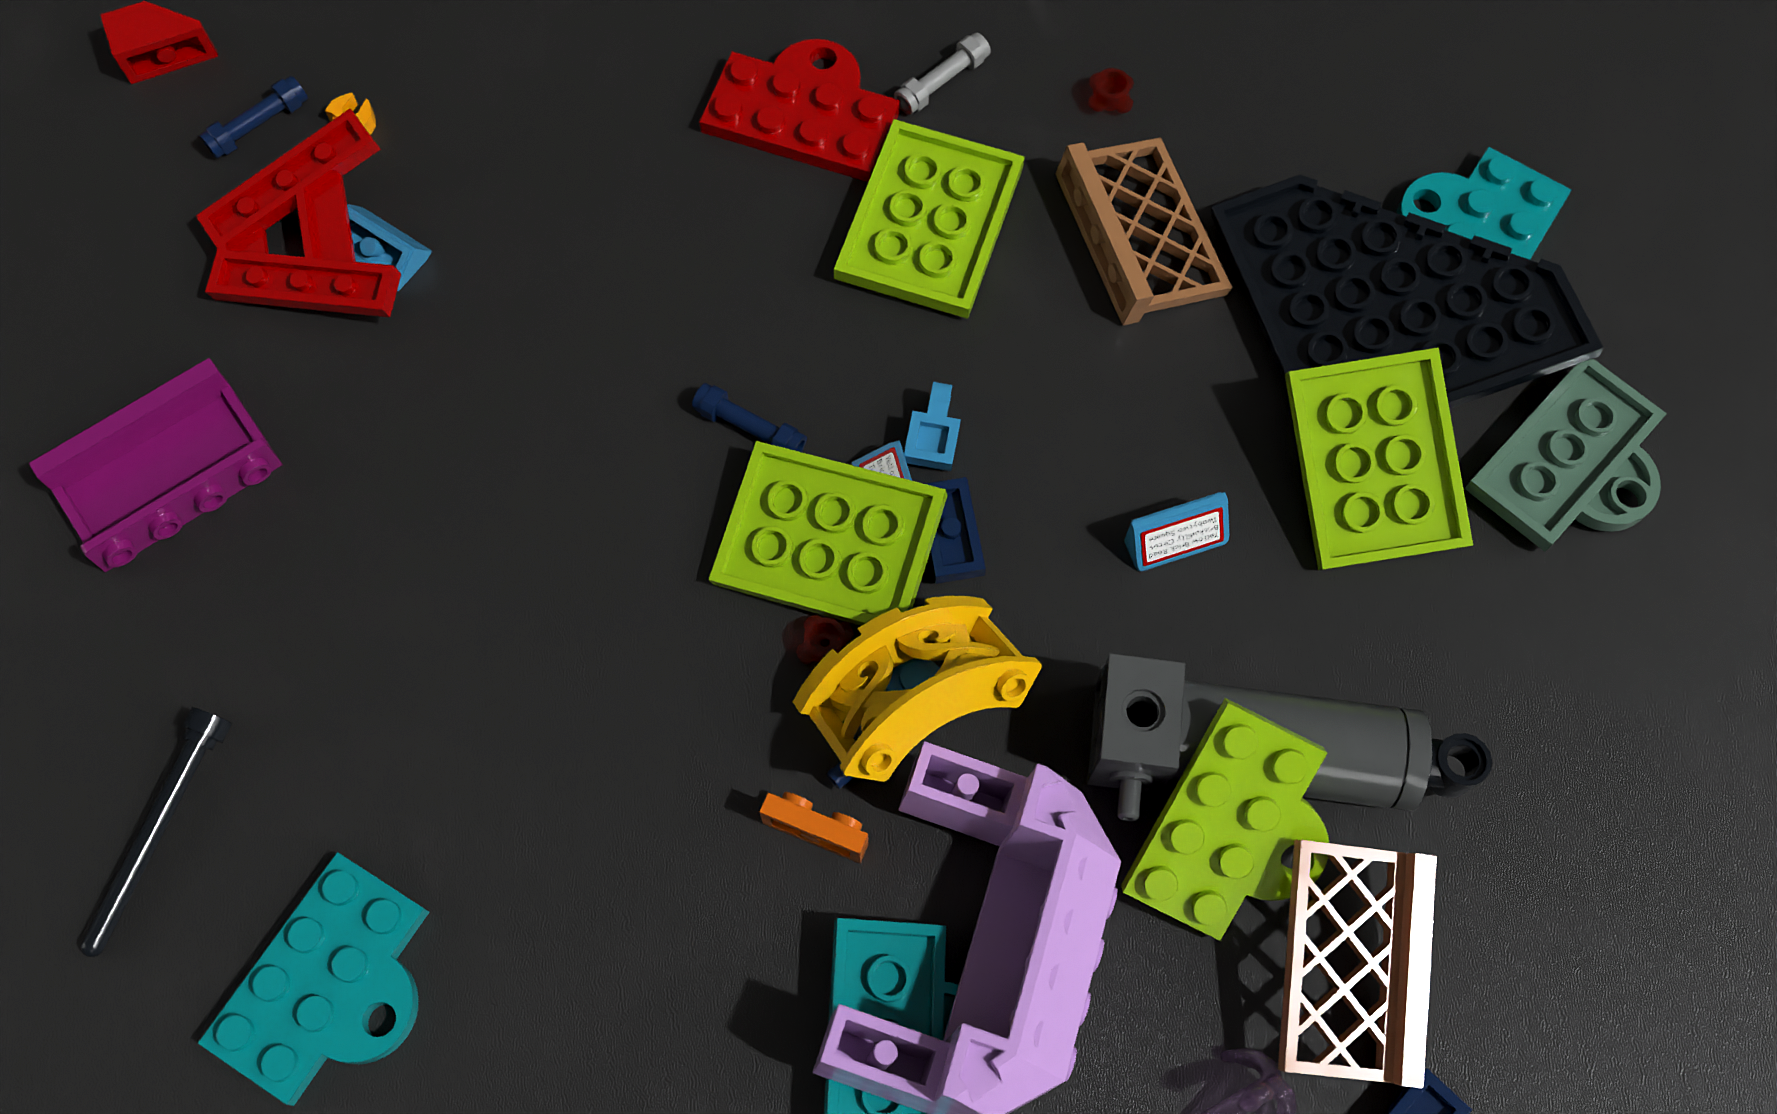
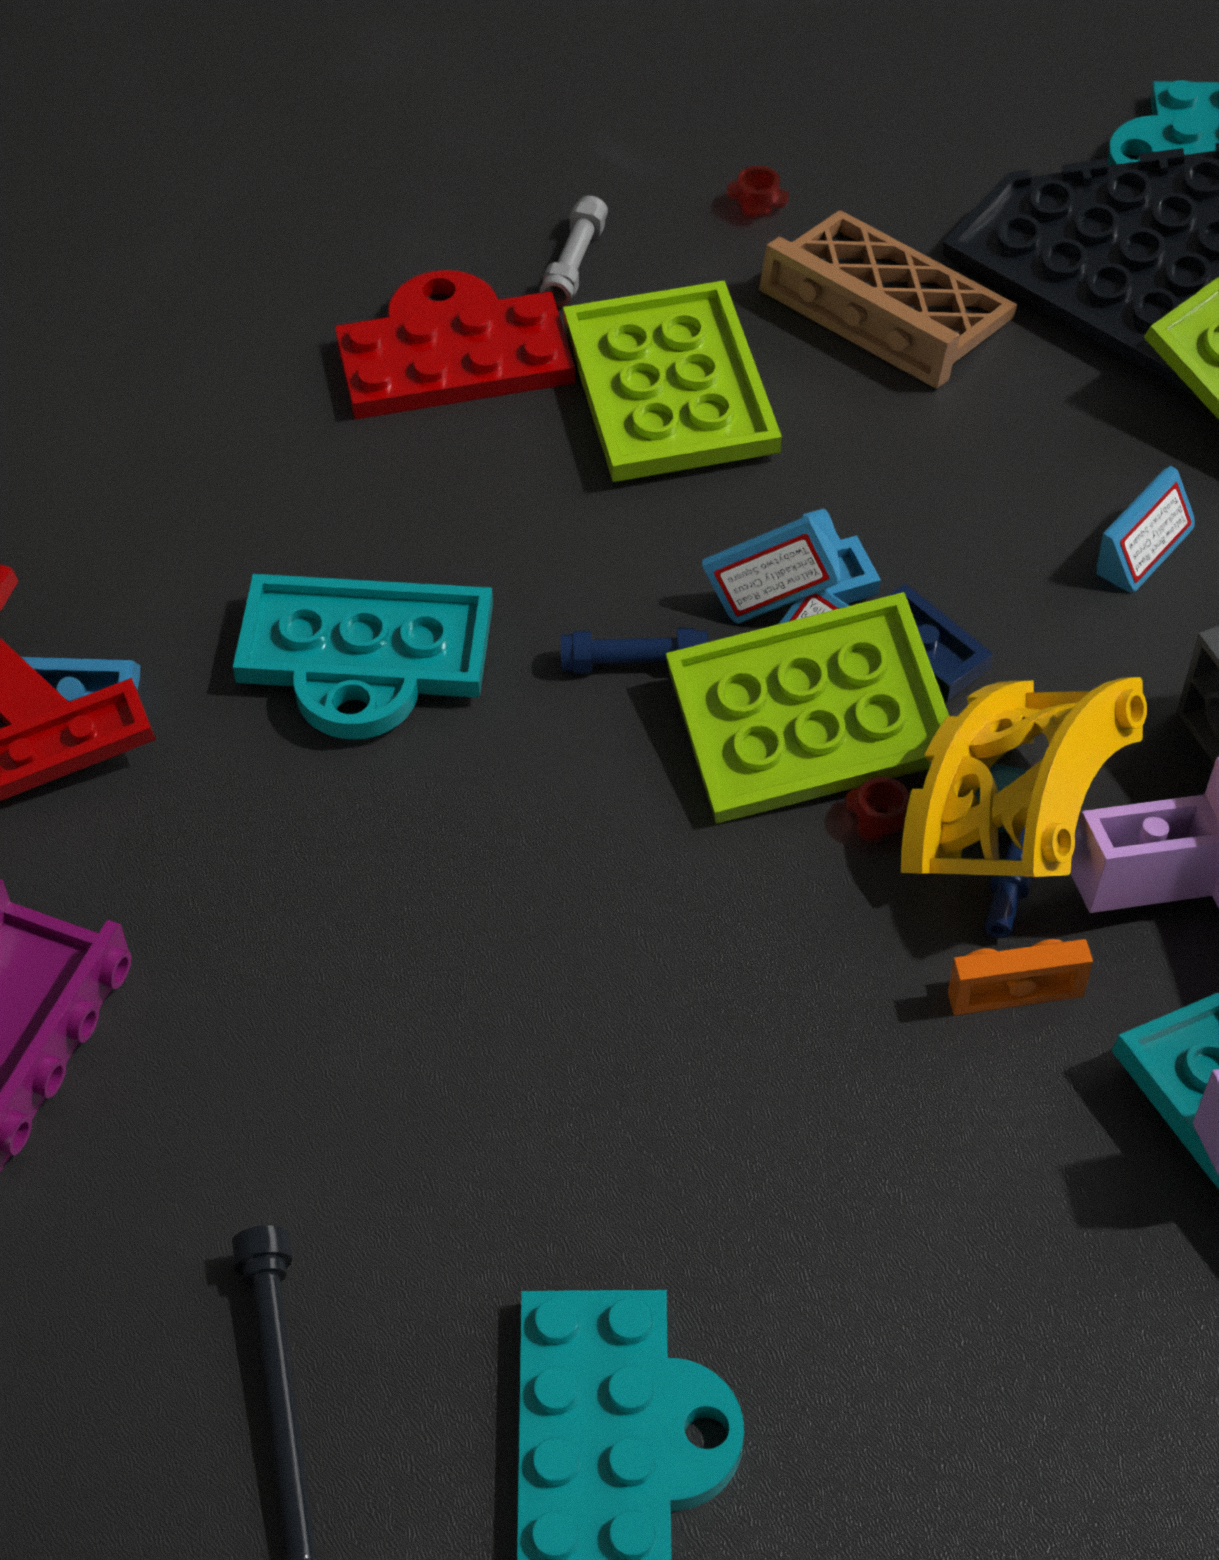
camera: 30 degrees left, 15 degrees down
(574, 317) = (363, 645): none -> teal plate
(876, 417) = (773, 569): none -> slope

